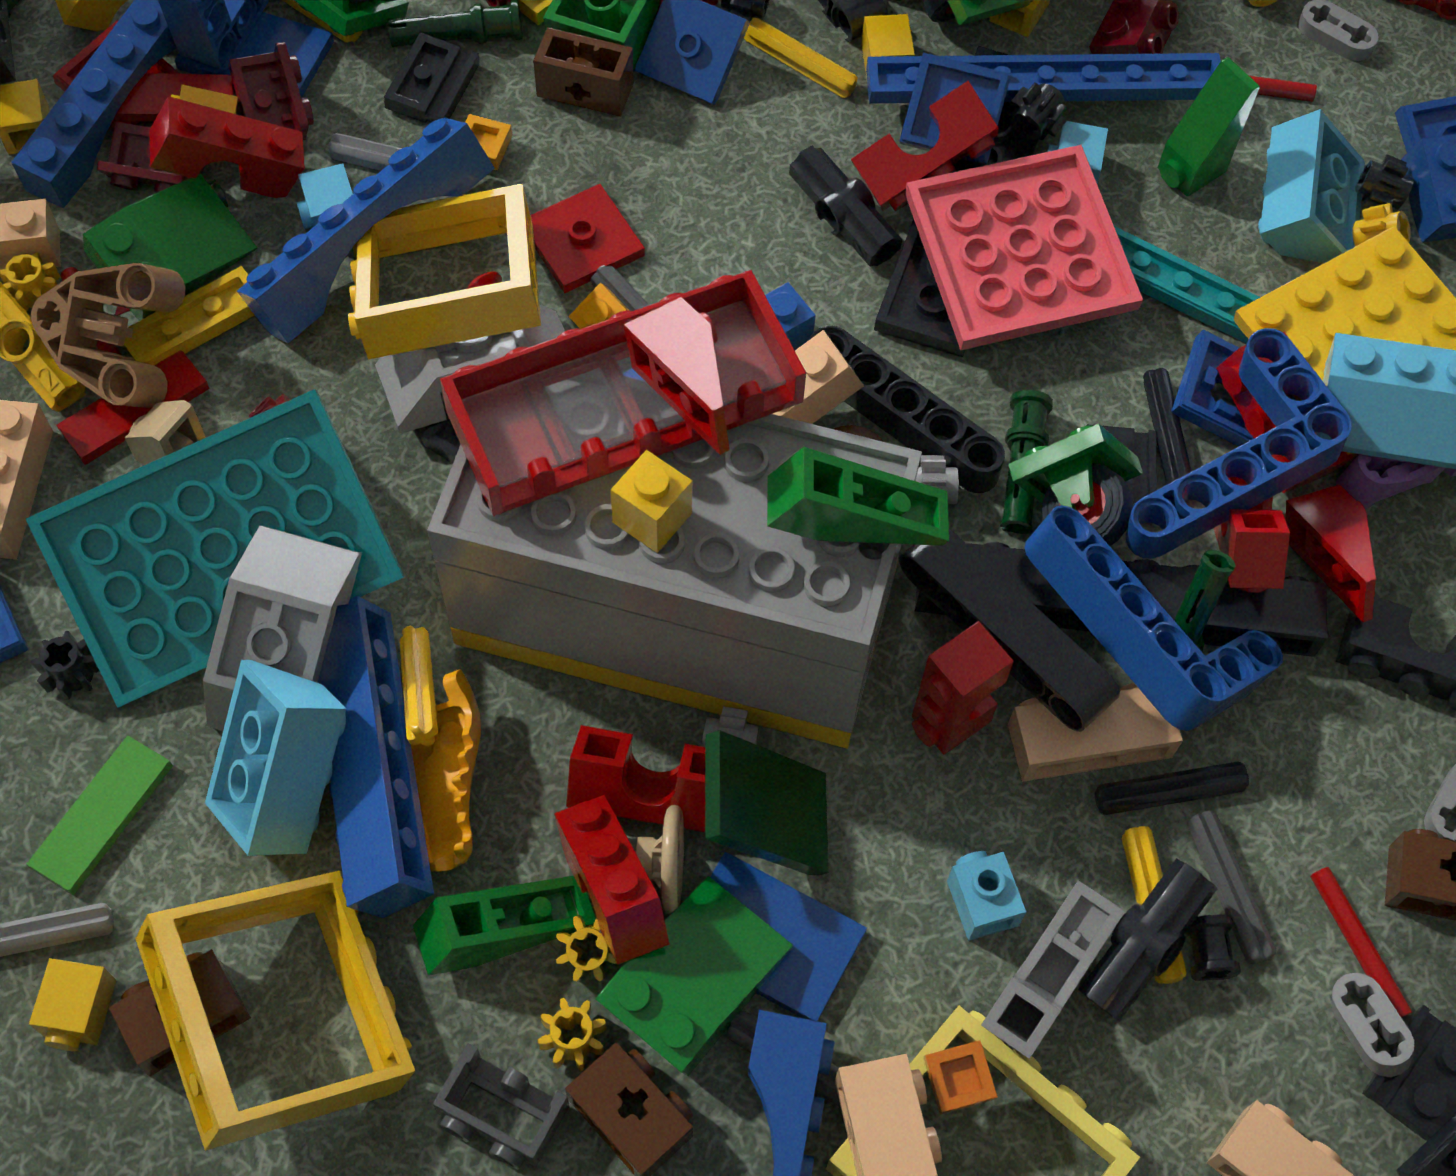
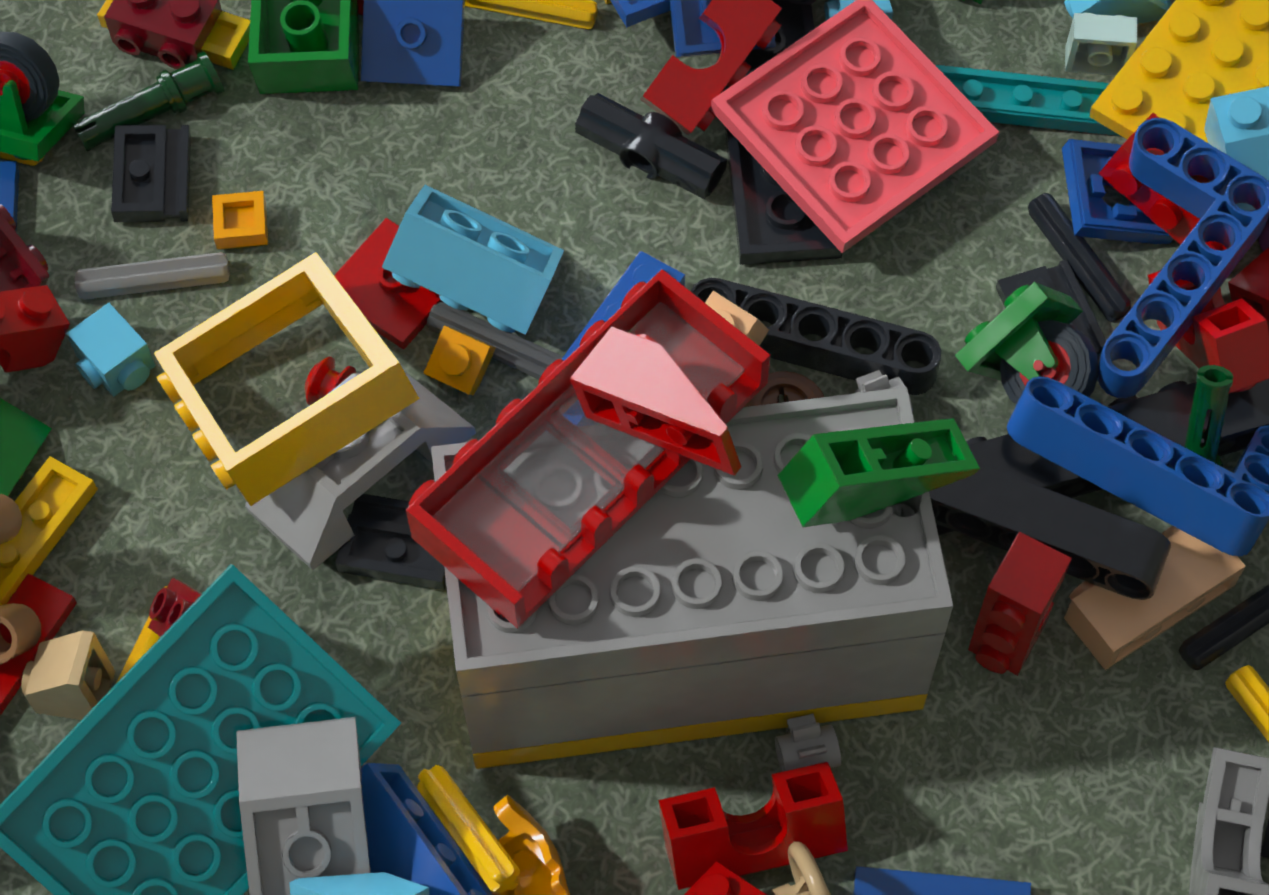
camera: 20 degrees left, 0 degrees up
(297, 283) = (124, 451): blue arch -> none
(584, 71) = (314, 104): reddish brown brick -> none
(647, 235) = (472, 260): none -> medium azure slope
(651, 501) = (677, 548): yellow brick -> none
(765, 804) = (882, 802): dark green tile -> none
(985, 894) = (1128, 799): medium azure brick -> none
(1025, 434) = (943, 320): dark green pin -> none
(1271, 261) = (1100, 43): none -> light aqua piece

